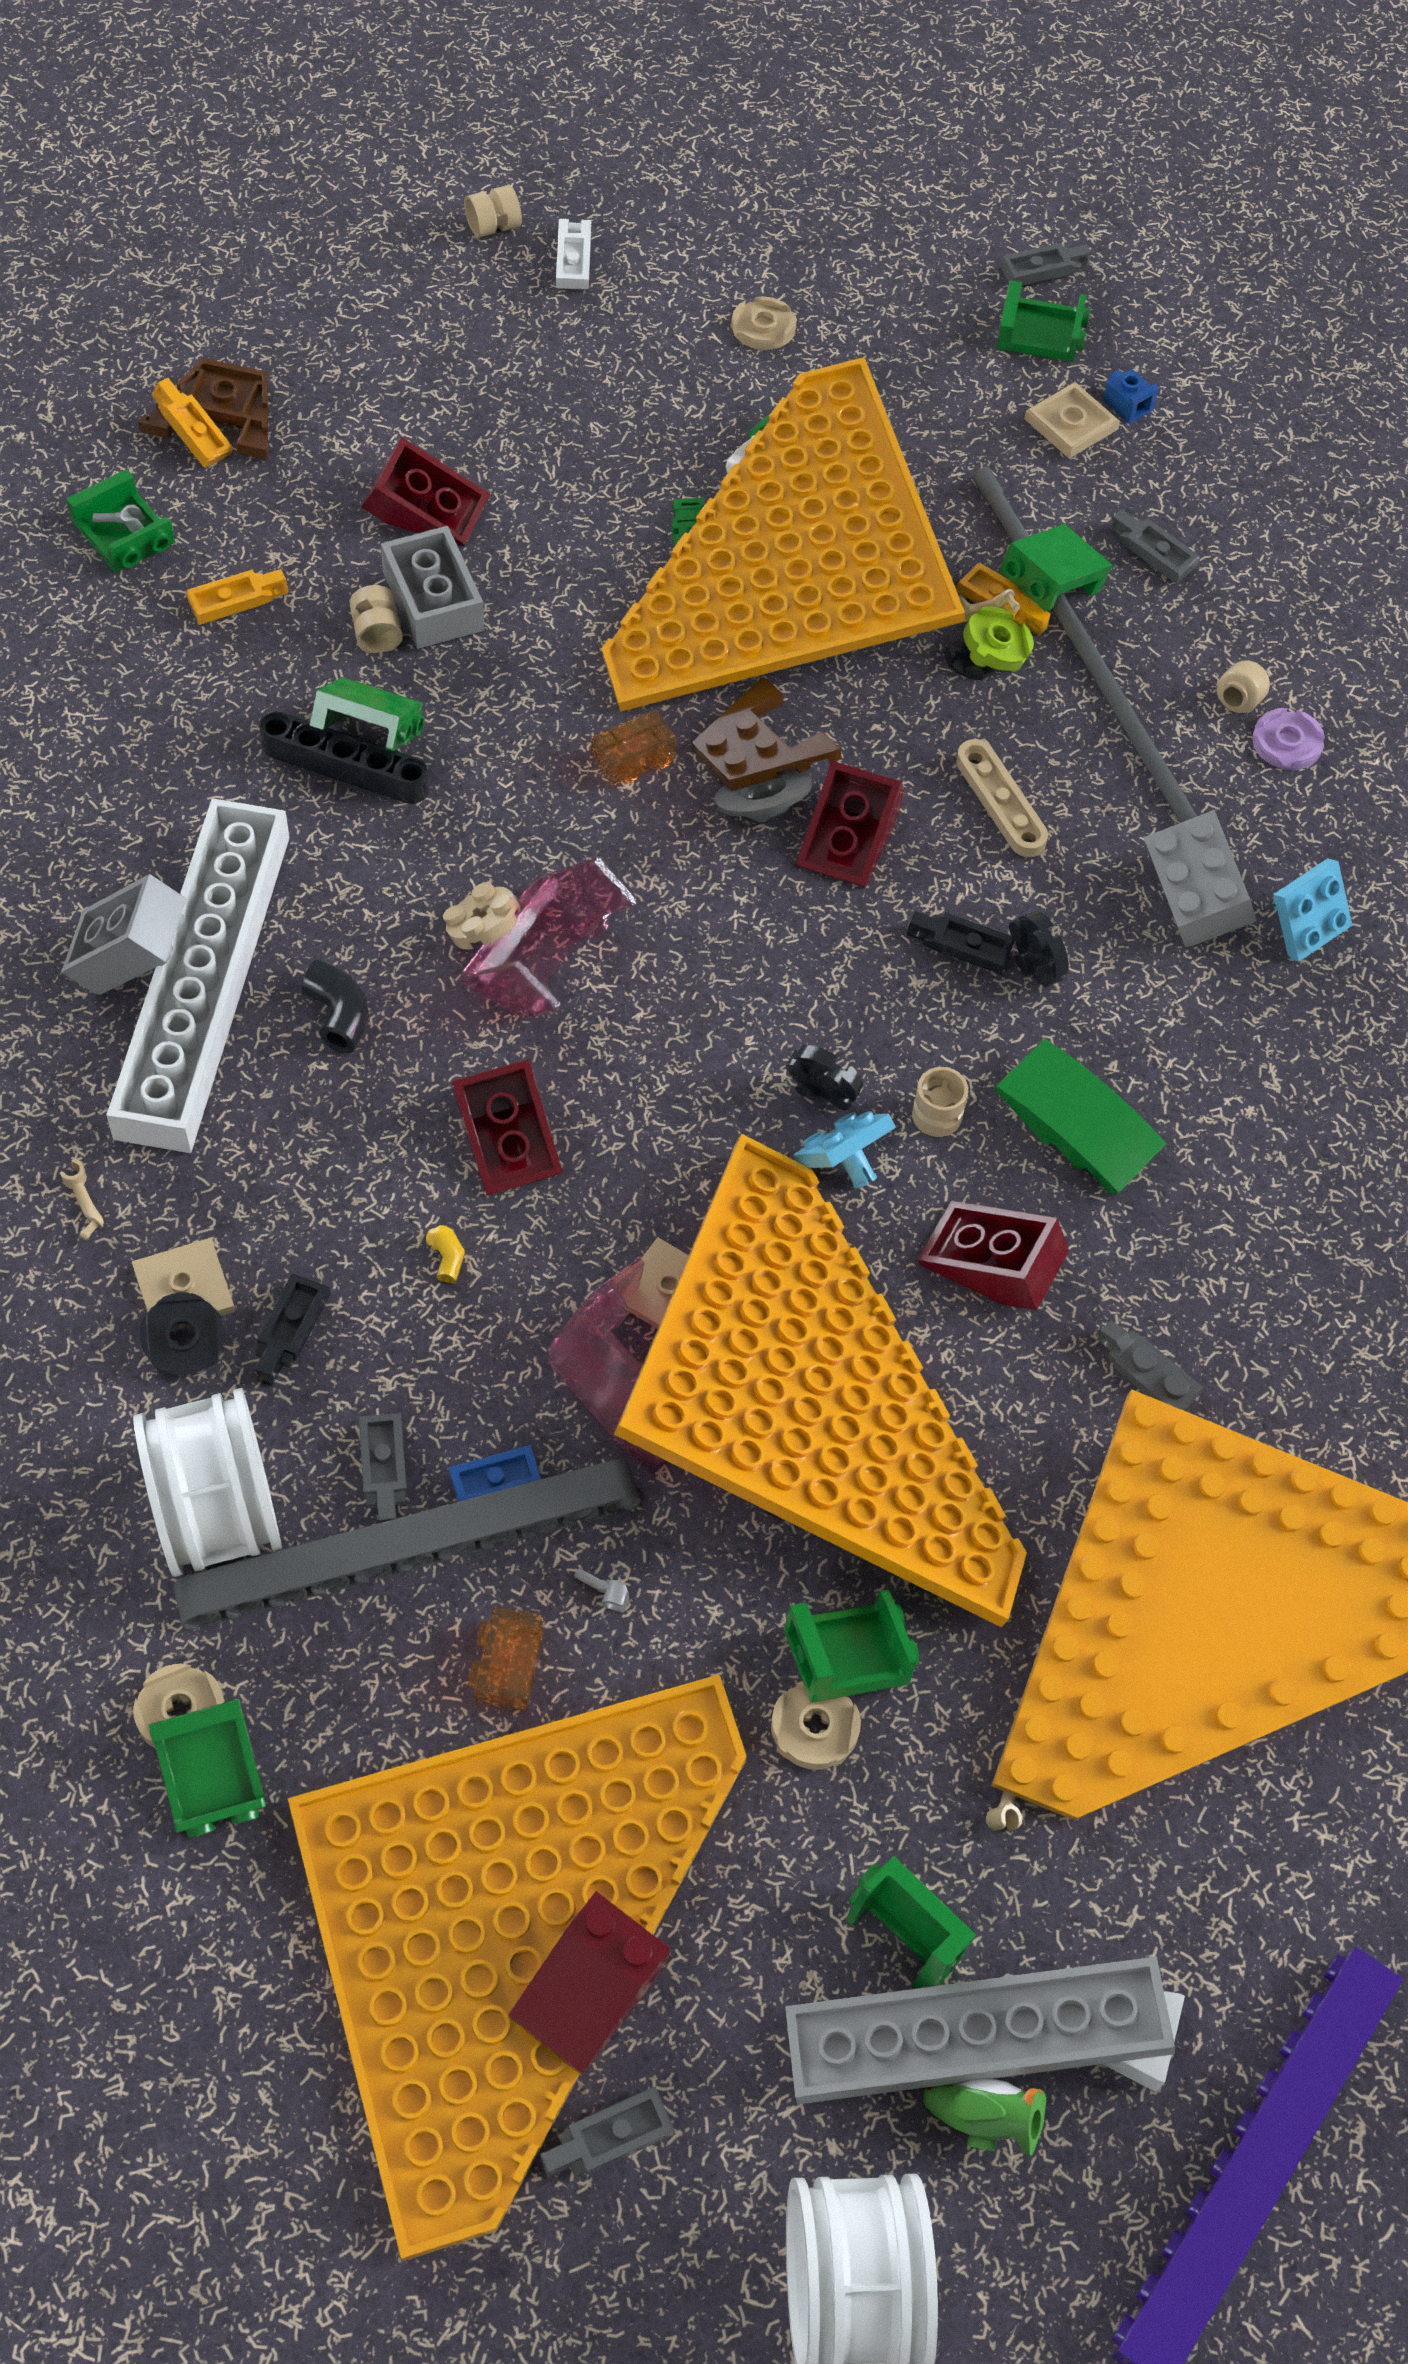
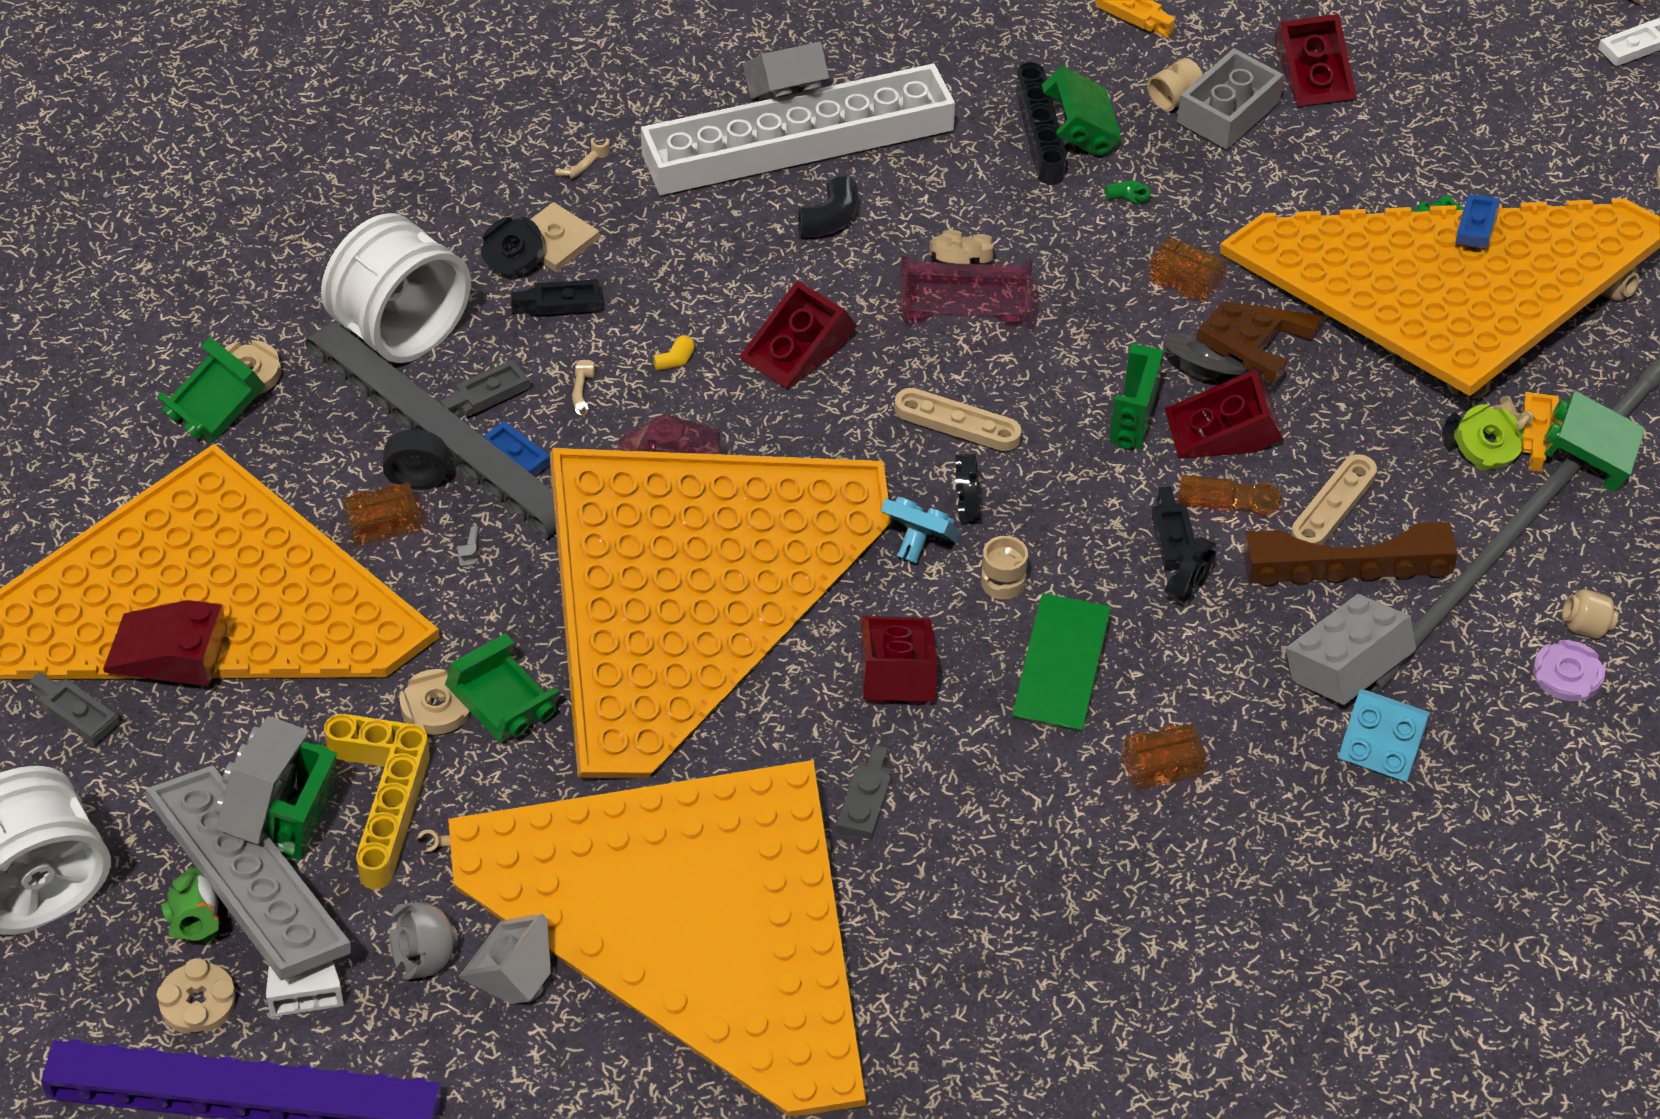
camera: 65 degrees right, 10 degrees down
(412, 1353) = (583, 370): none -> tan piece
(463, 1585) = (415, 443): none -> black tyre
(487, 736) = (1129, 190): none -> green arm
(707, 1042) = (958, 419): none -> tan plate
(757, 490) = (1478, 221): none -> blue plate
(795, 866) = (1142, 383): none -> green panel
(879, 1955) = (261, 773): none -> light grey brick
(920, 1828) = (405, 758): none -> yellow beam
(943, 873) = (1223, 493): none -> clear orange piece
(1048, 872) = (1279, 557): none -> reddish brown arch
(1090, 2186) = (195, 978): none -> tan plate
(1151, 1883) = (422, 932): none -> light grey cylinder
(1207, 1802) = (512, 960): none -> light grey slope
(1236, 1094) = (1163, 756): none -> clear orange brick

